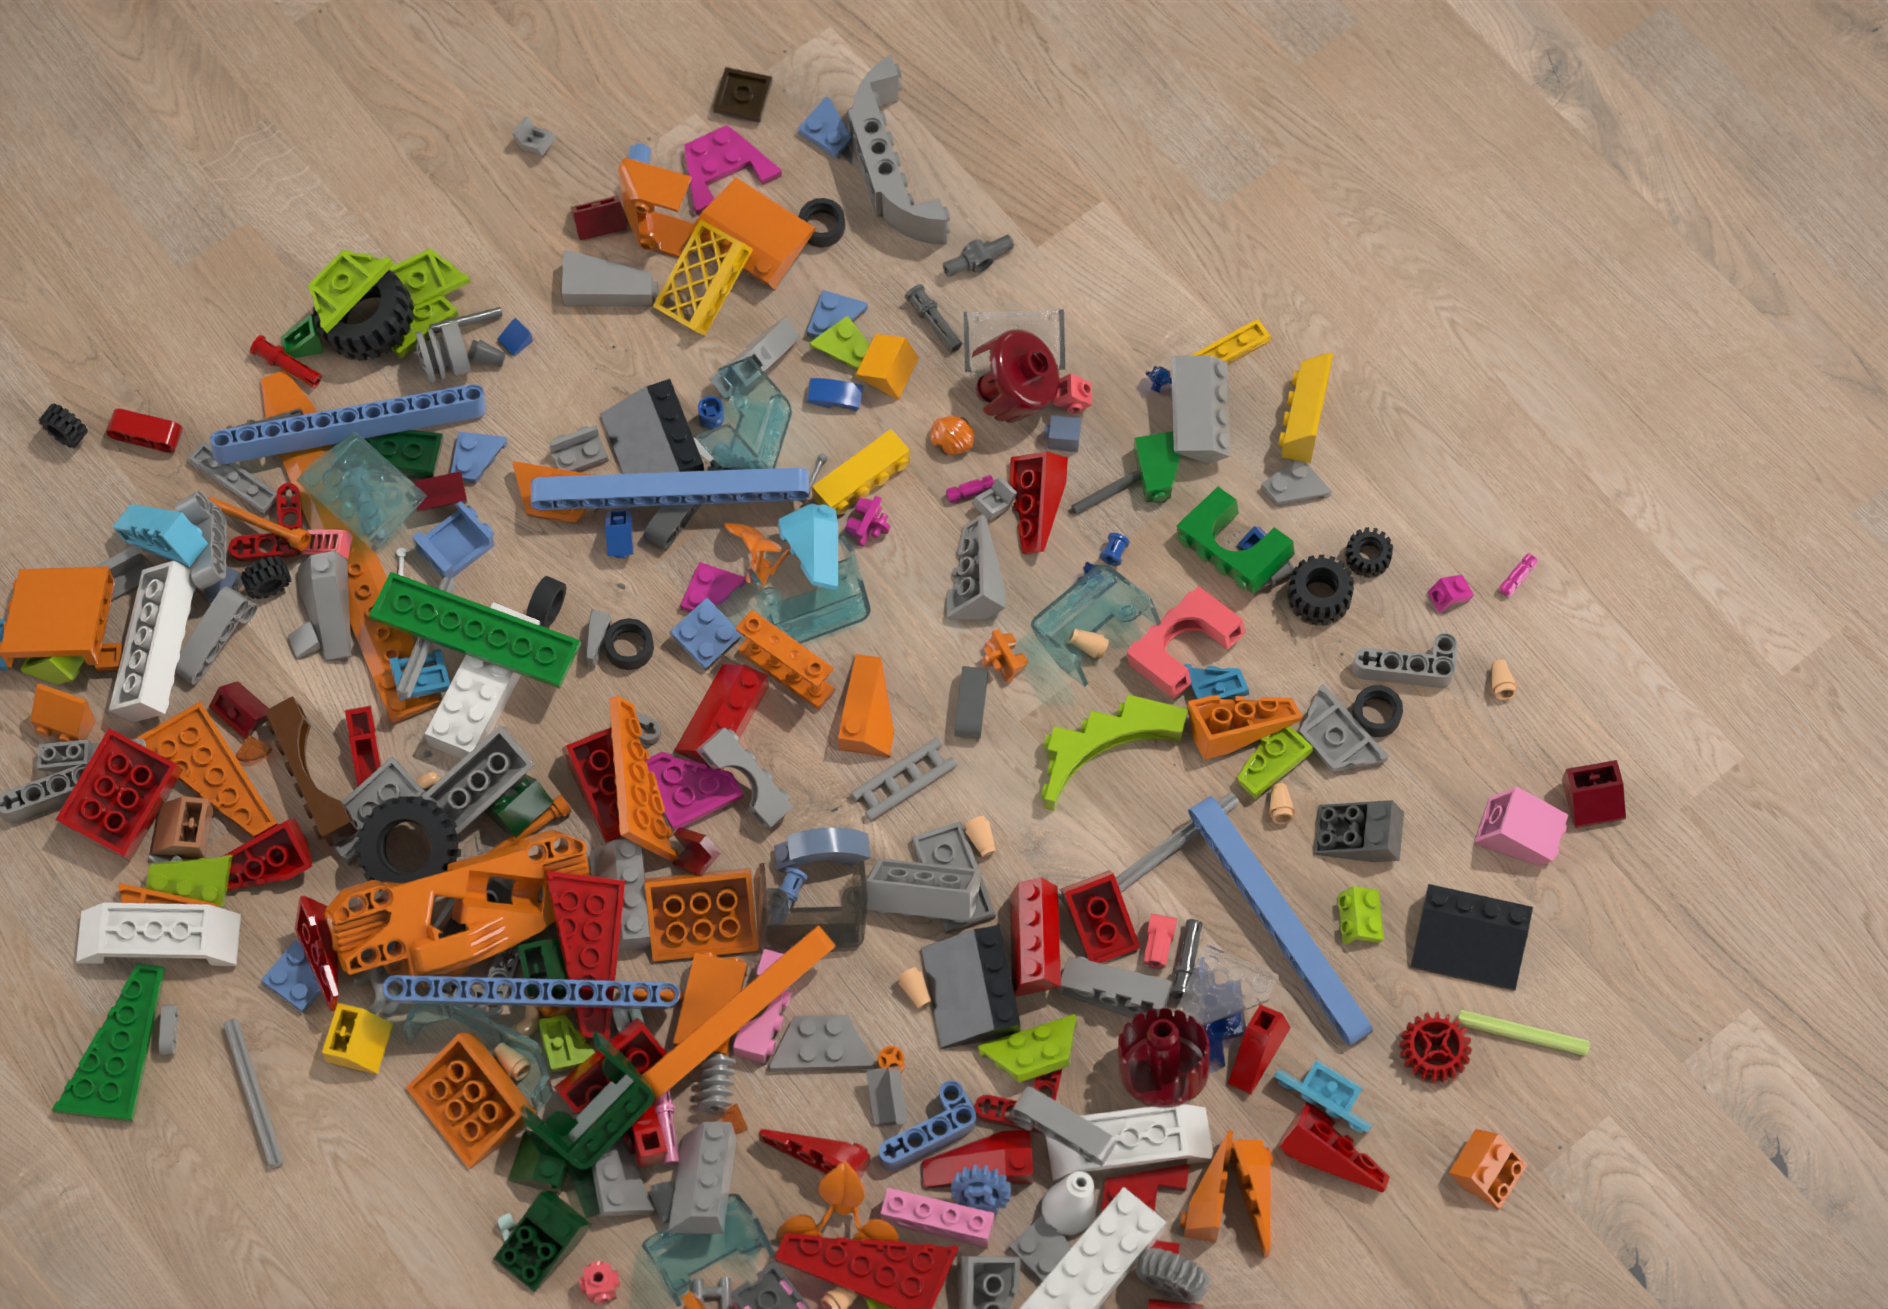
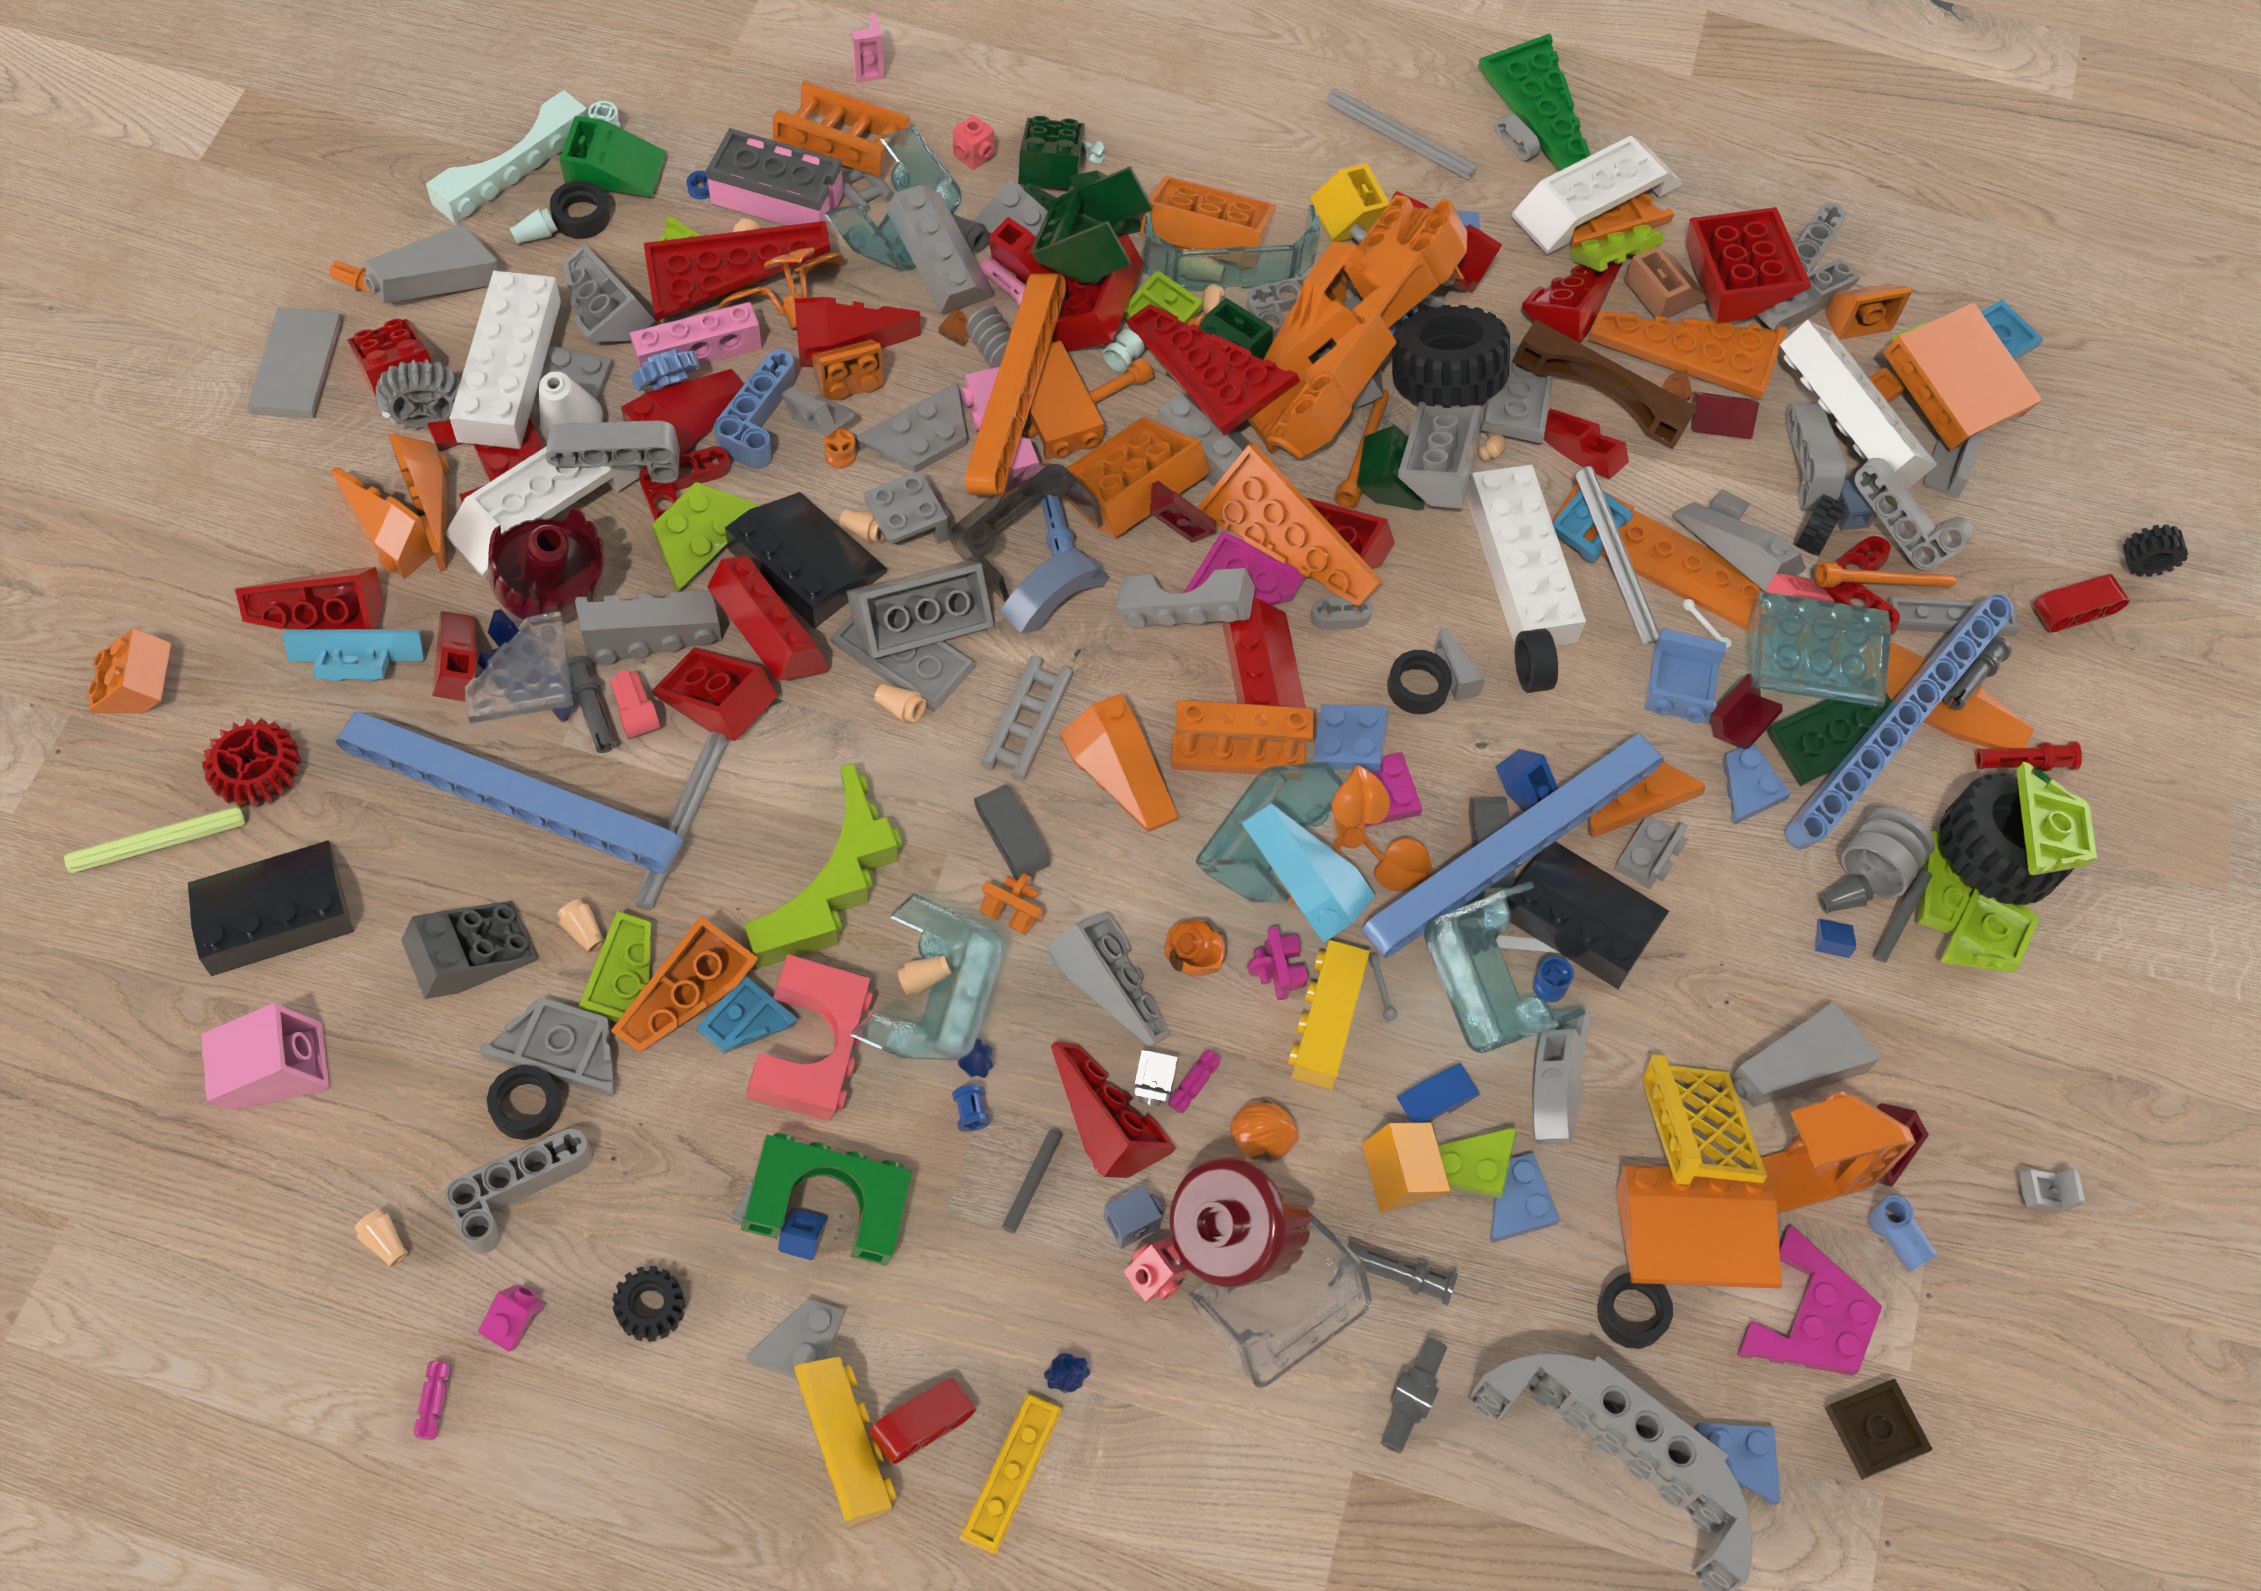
camera: 140 degrees right, 5 degrees down
(161, 533) = (1954, 486): medium azure wedge -> none
(475, 630) = (1573, 569): green plate -> none
(518, 998) = (1219, 285): medium blue beam -> none
(842, 1117) = (849, 369): none -> orange slope
(881, 968) = (908, 508): none -> light grey bracket
(913, 556) = (1194, 947): none -> orange hair
(1157, 465) = (990, 1251): green slope -> none
(1200, 408) = (981, 1344): light grey slope -> none
(1259, 393) = (922, 1421): none -> red beam
(1326, 572) = (670, 1179): black tyre -> none
(1360, 915) = (415, 856): lime bracket -> none
(1595, 793) = (188, 1157): dark red slope -> none

